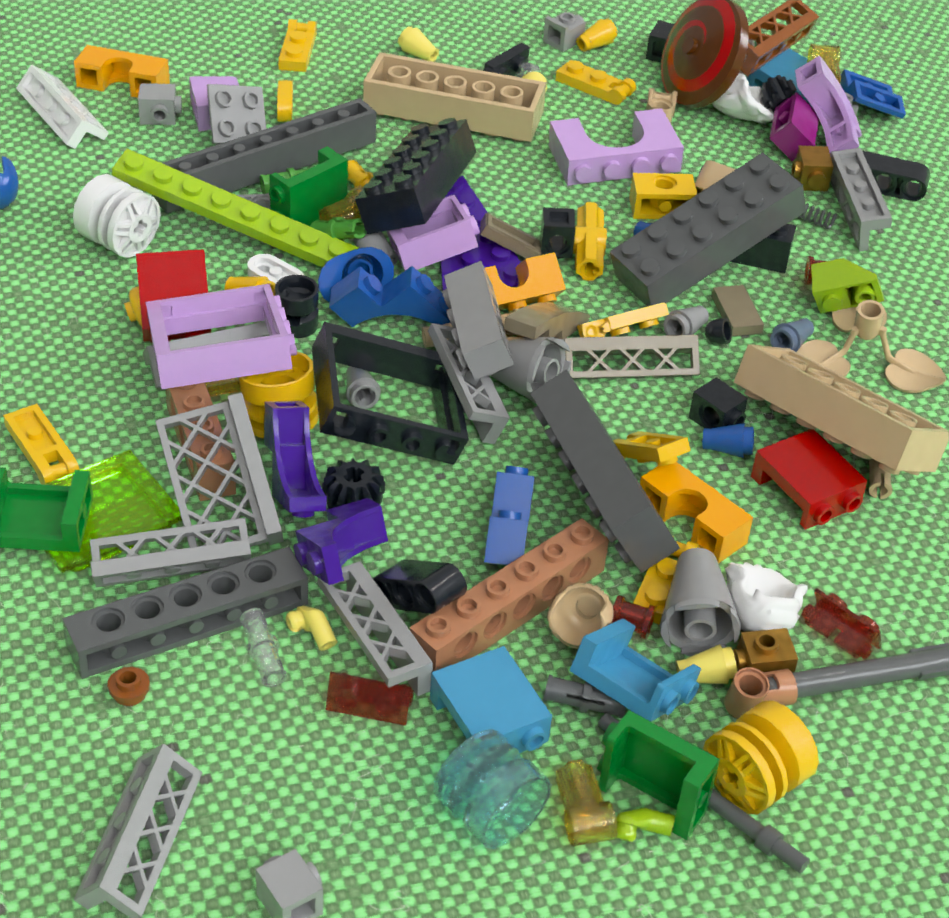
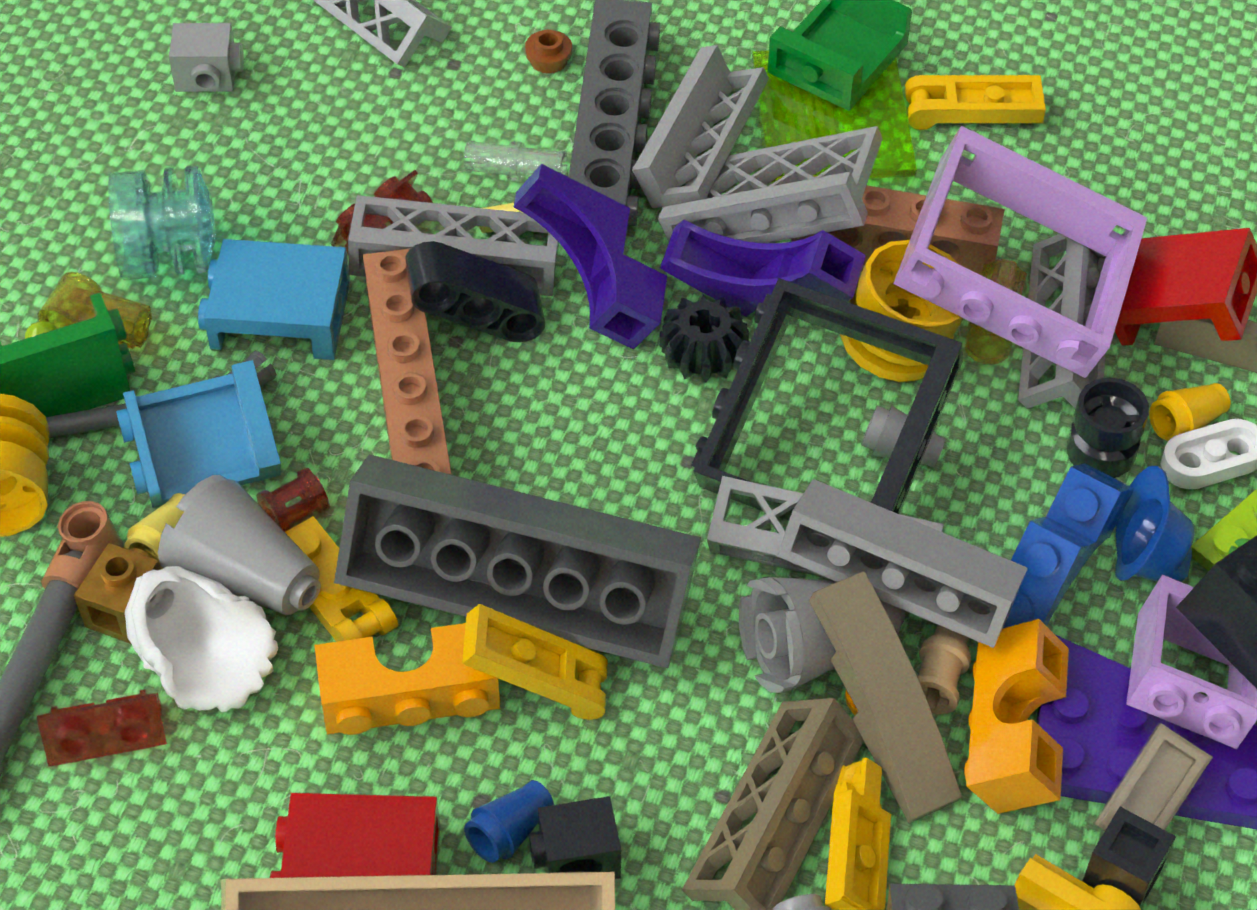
camera: 125 degrees right, 10 degrees up
(509, 516) = (555, 460): arch -> none
(579, 612) = (324, 440): tan hair -> none

